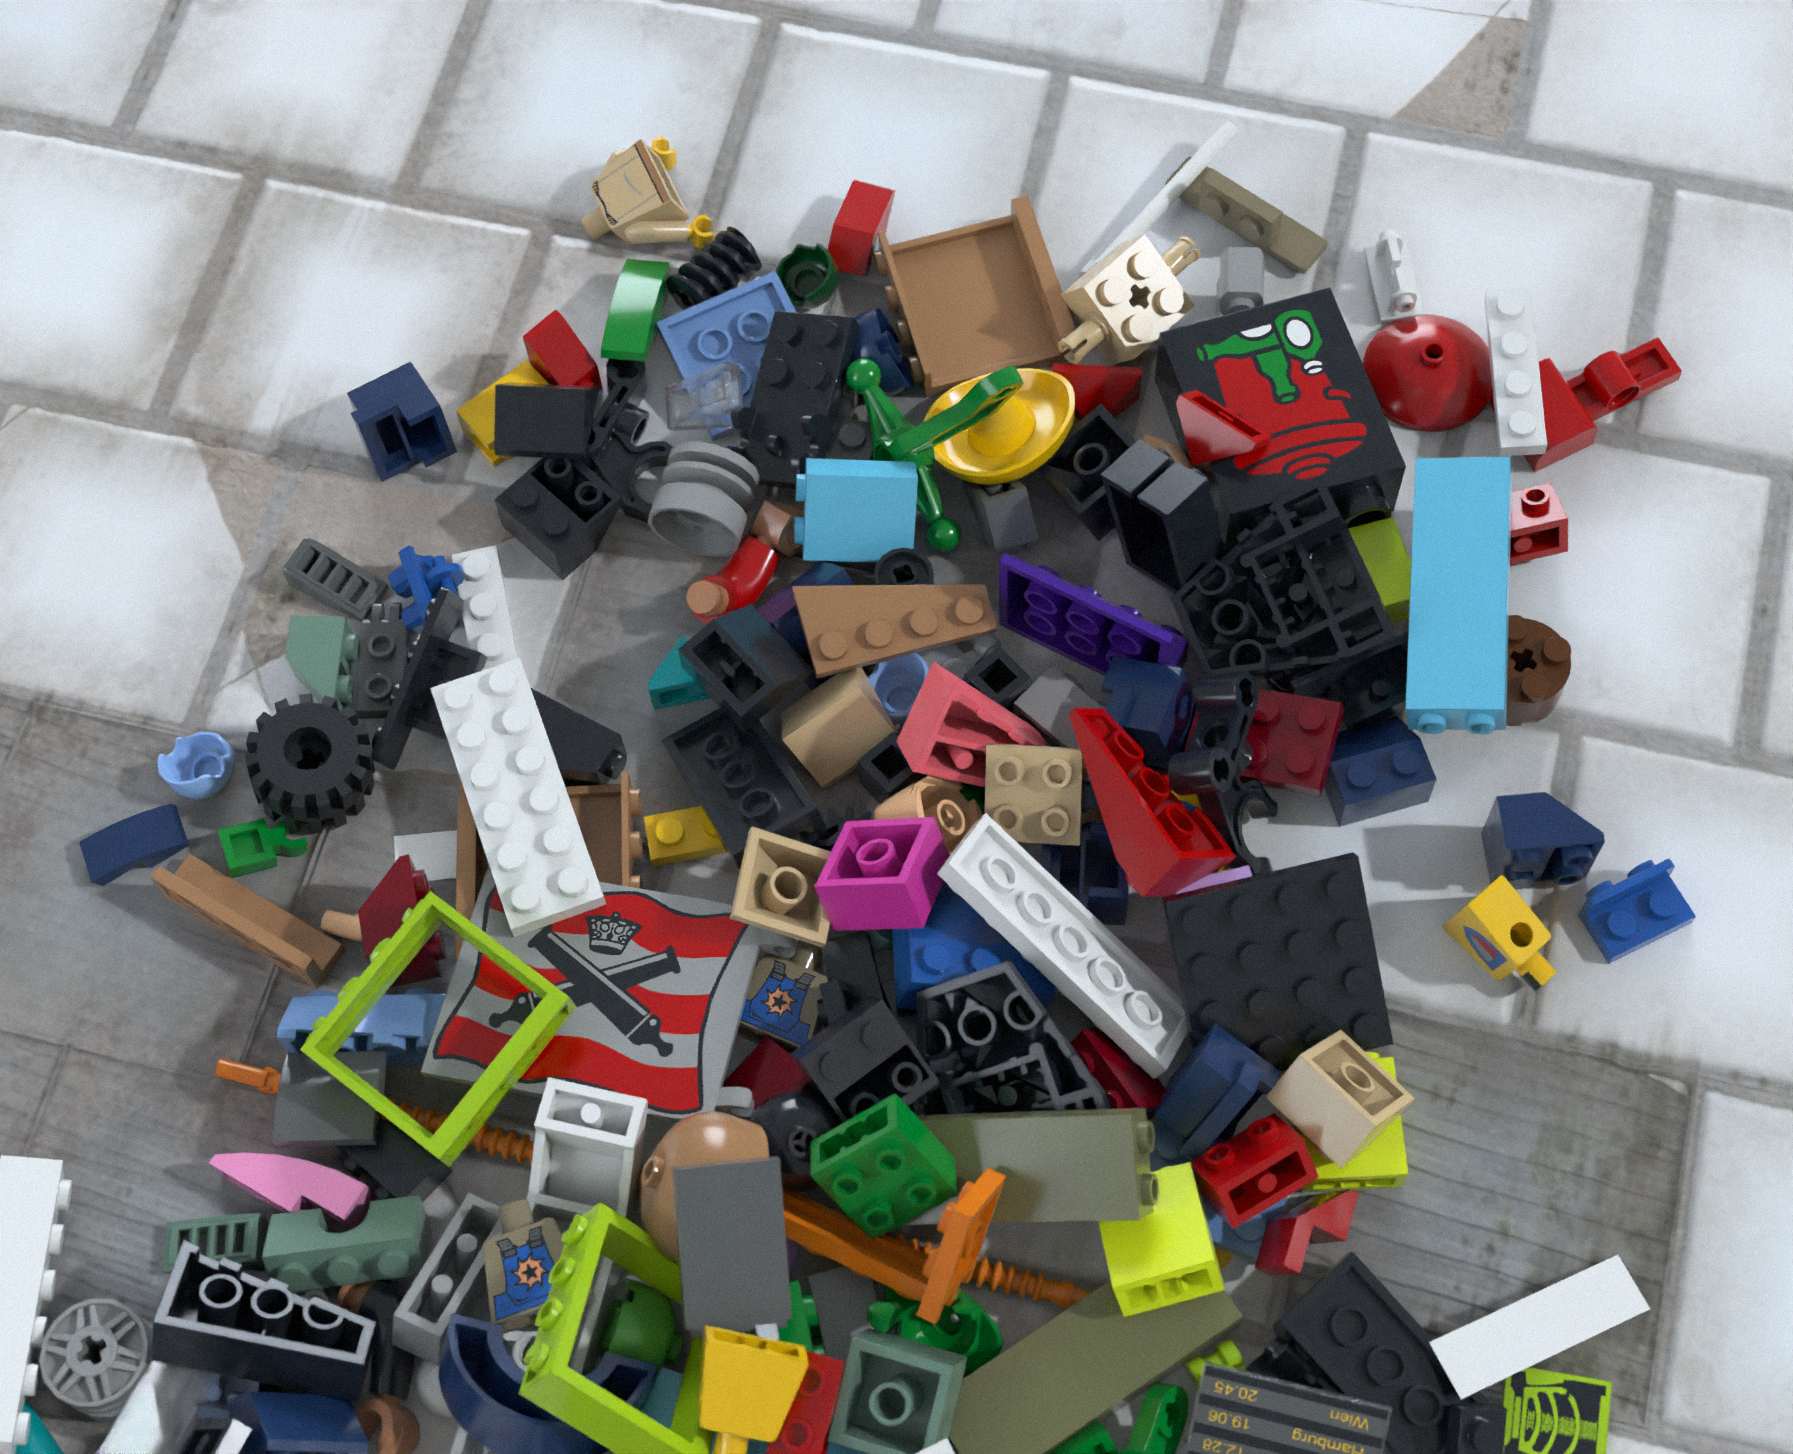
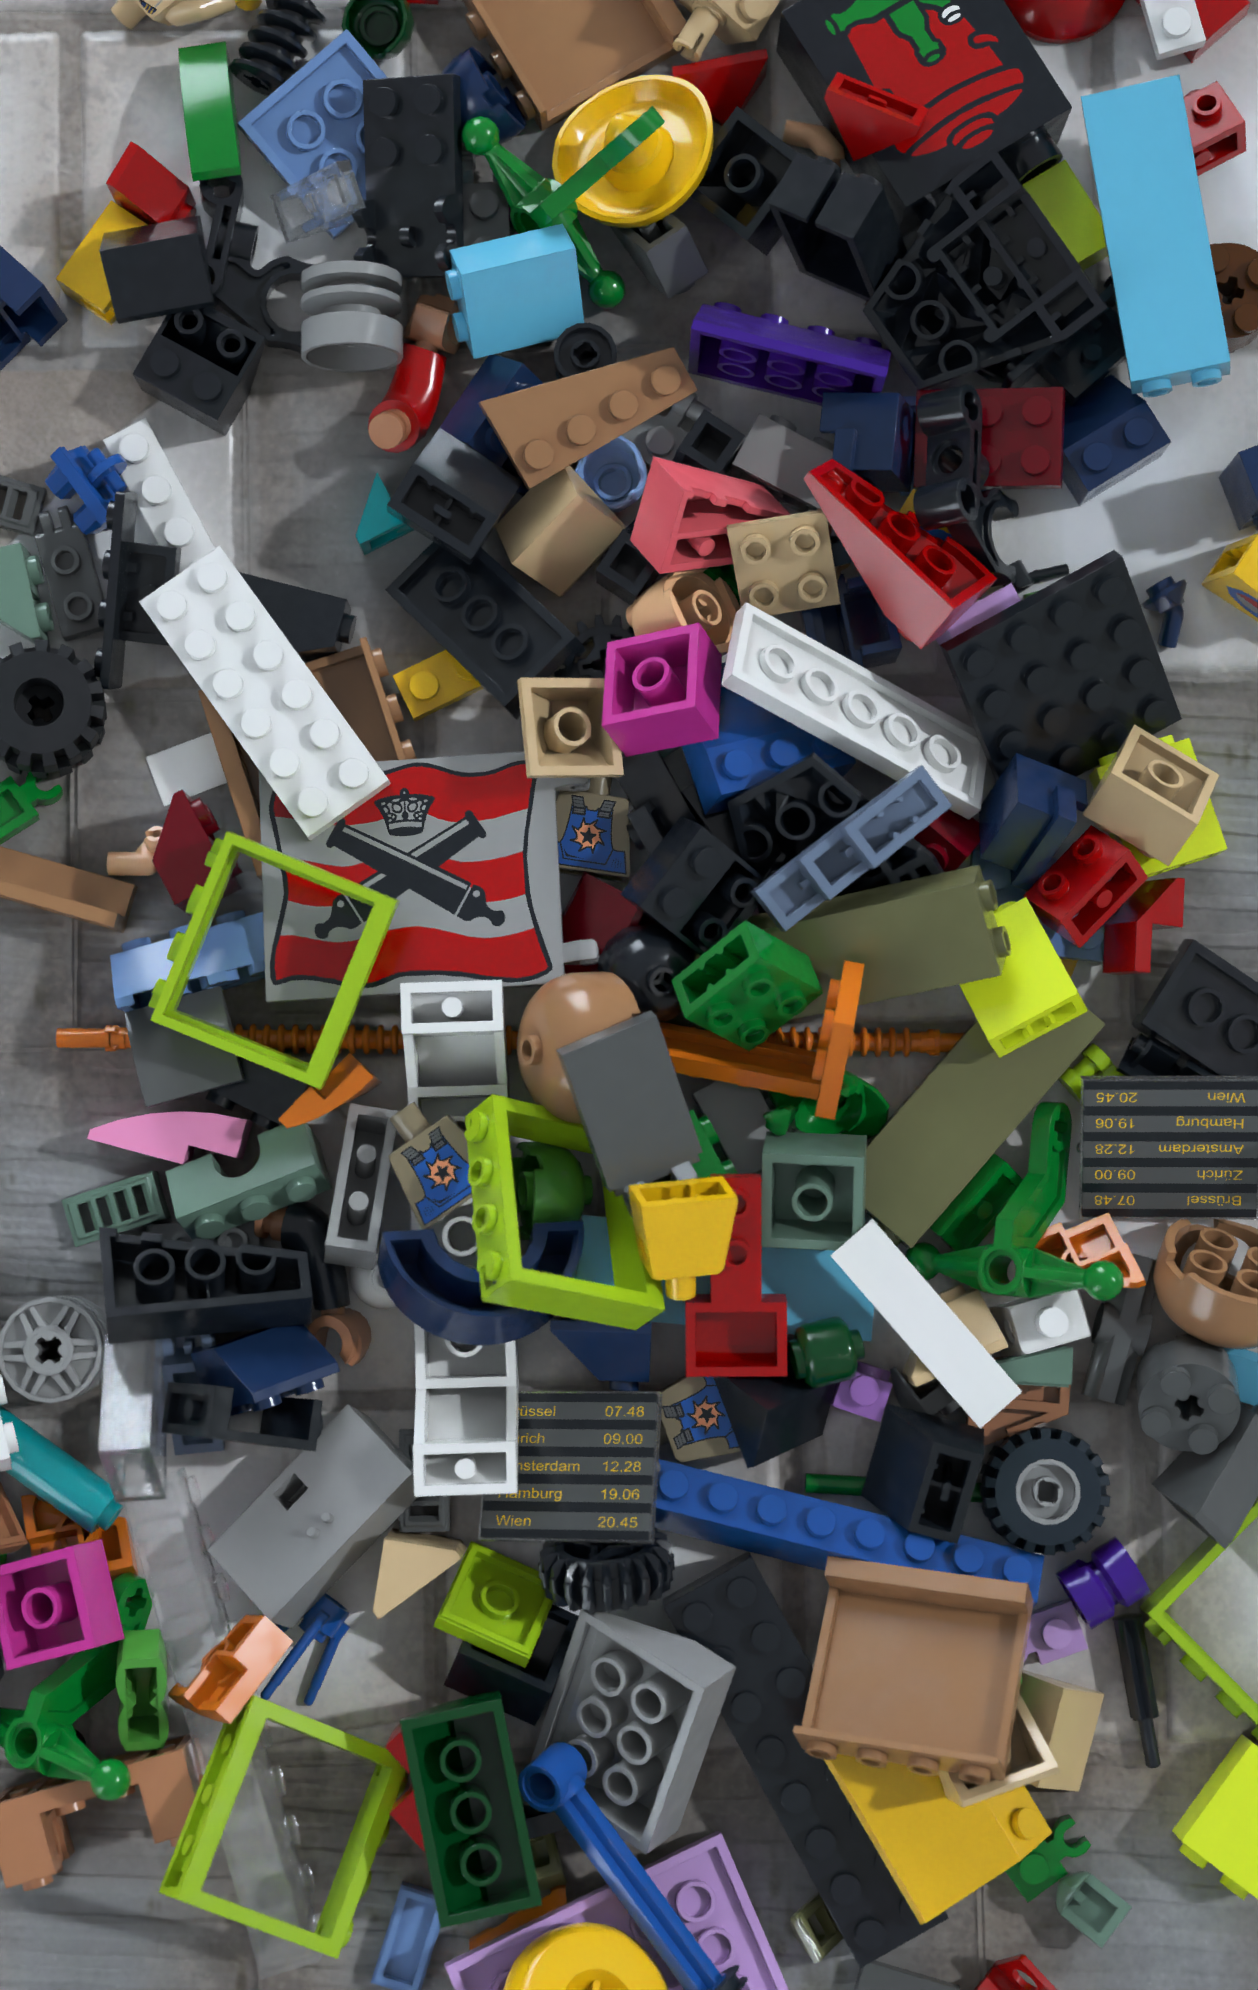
camera: 20 degrees left, 20 degrees up
(475, 1175) = (345, 1083): none -> orange slope
(1021, 1058) = (851, 848): none -> sand blue slope
(1404, 926) = (1167, 599): none -> dark blue plate

